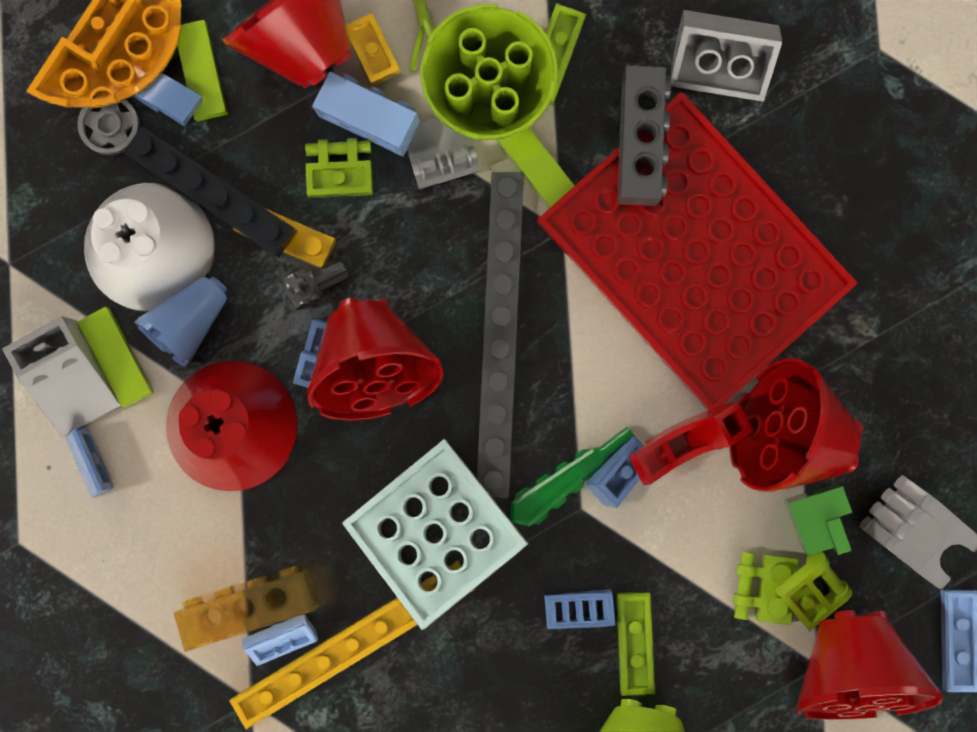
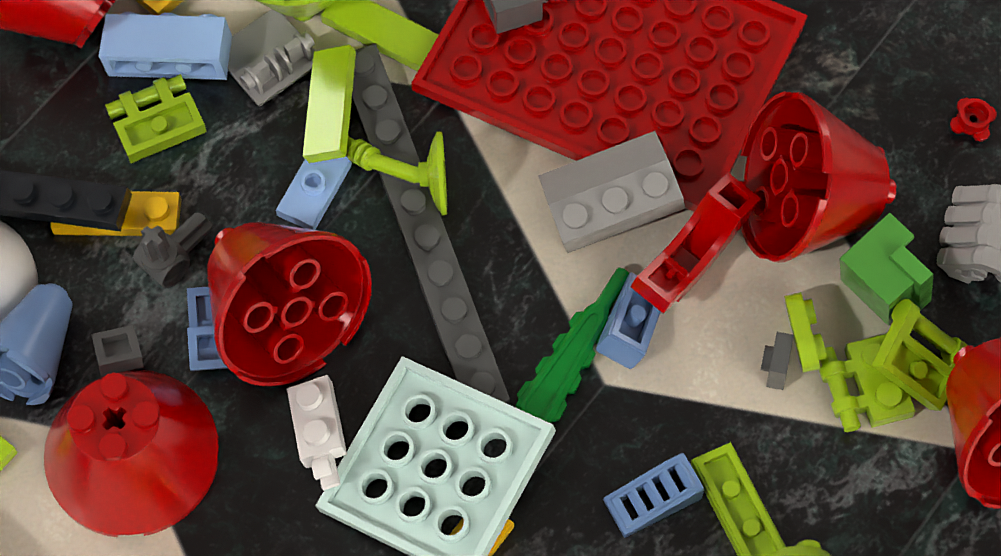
camera: 20 degrees left, 20 degrees down
(246, 347) = (117, 350): none -> dark grey plate
(364, 467) = (318, 428): none -> white plate
(434, 272) = (313, 191): none -> light blue plate
(469, 213) = (329, 104): none -> lime tile
(478, 264) = (428, 173): none -> lime dish
(647, 371) = (612, 191): none -> light grey slope
(710, 548) = (776, 360): none -> dark grey plate
(737, 551) = (809, 346): none -> lime plate
(951, 415) = (977, 109): none -> red plate

